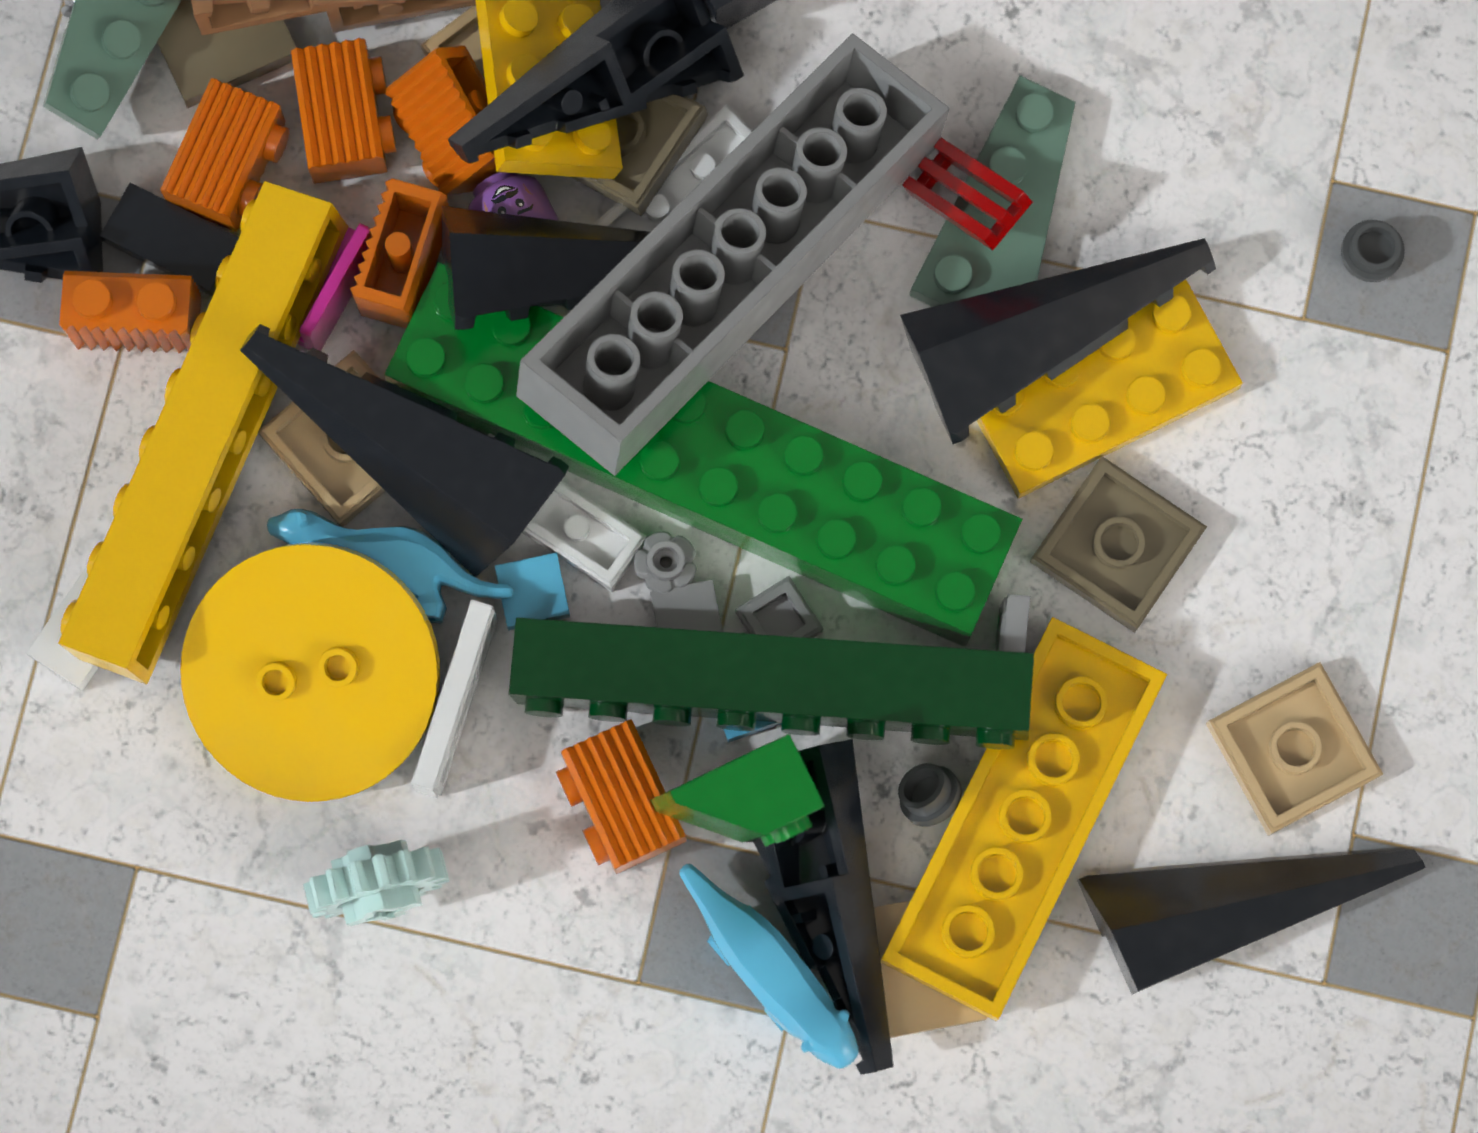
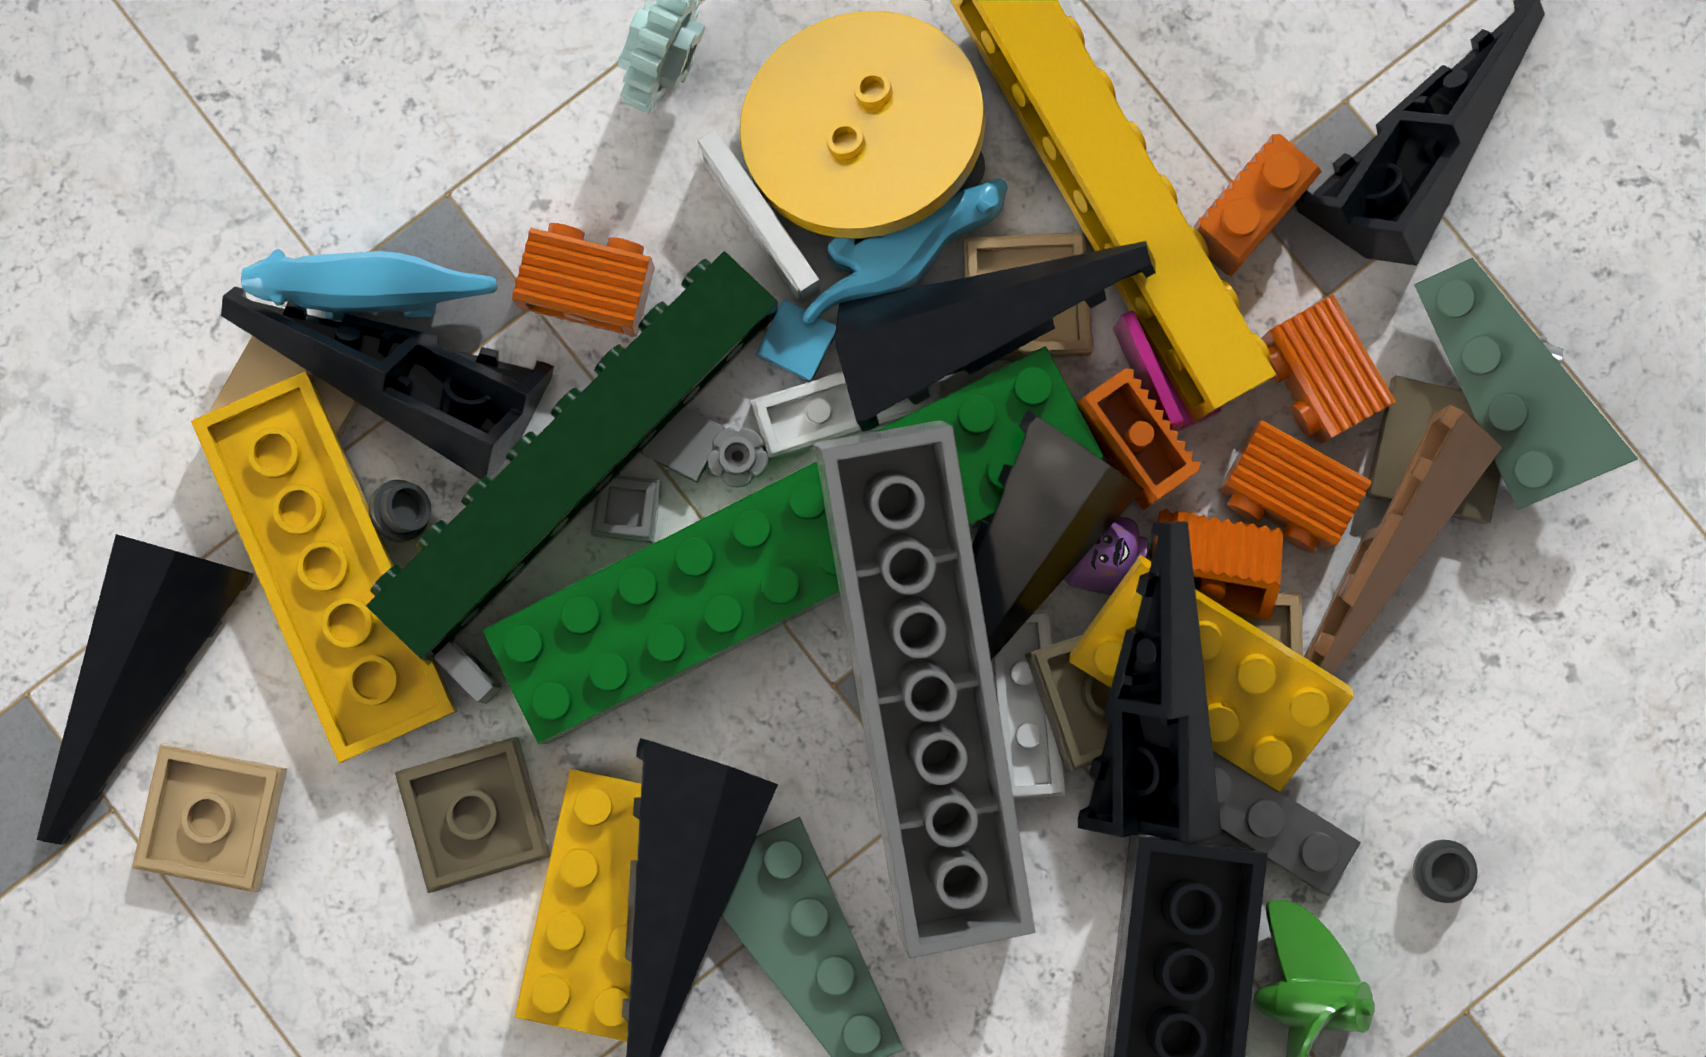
camera: 130 degrees right, 5 degrees up
(168, 237) = (1293, 282): black tile -> none
(749, 797) = (492, 345): green slope -> none
(936, 171) = (878, 913): red tile -> none

